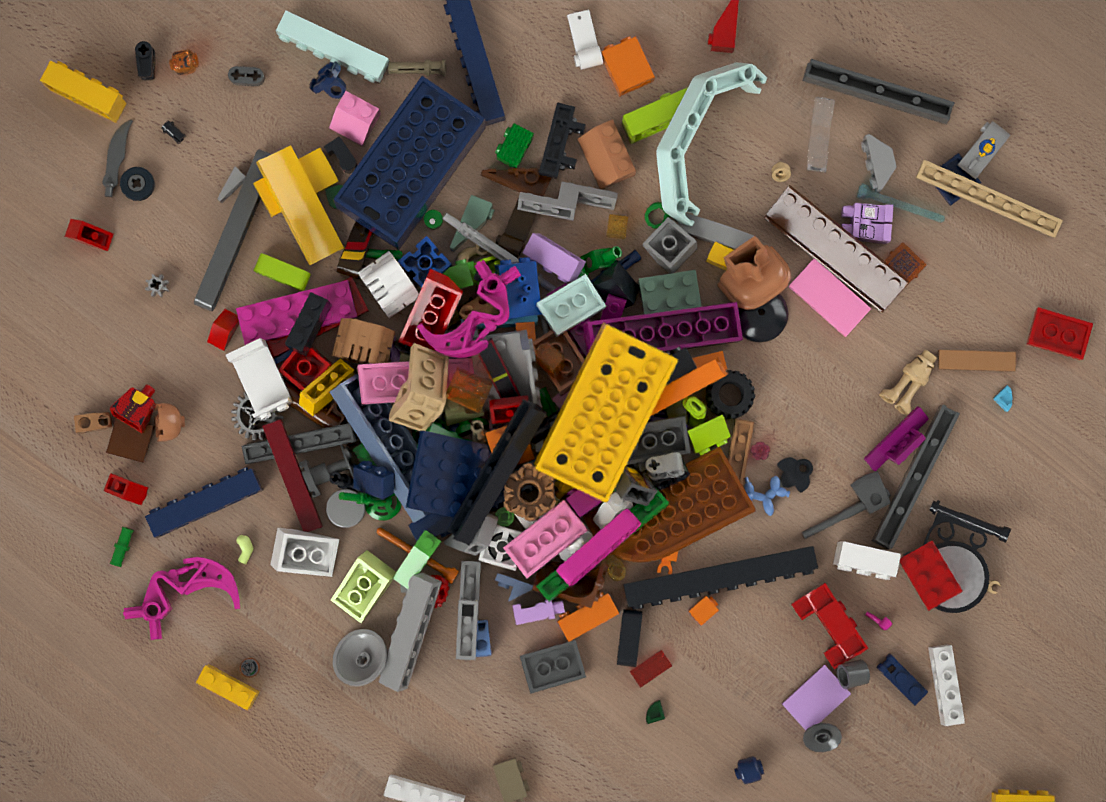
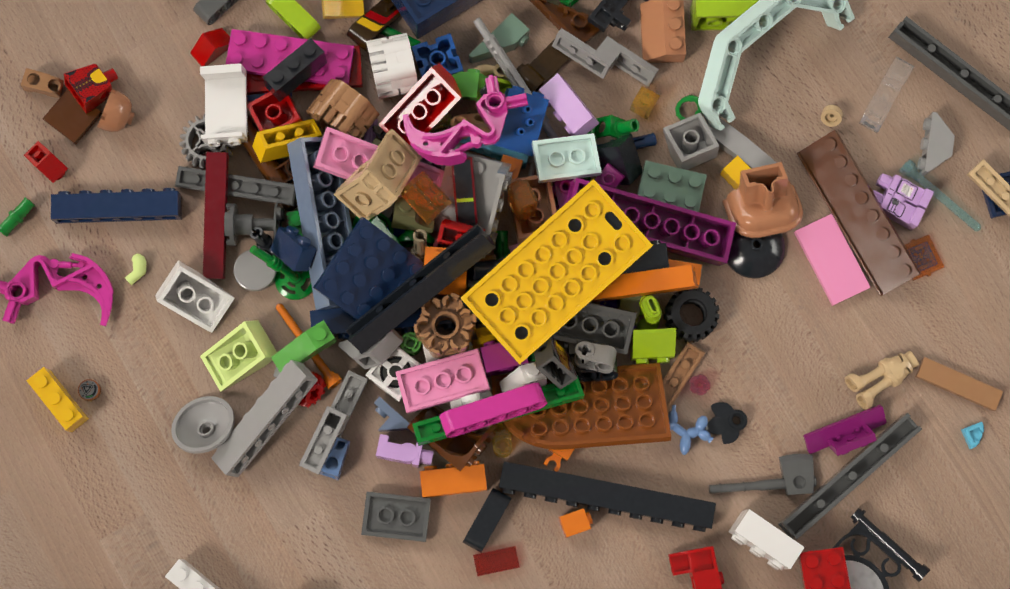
camera: 20 degrees right, 5 degrees down
(433, 219) = (464, 24): green tile -> none

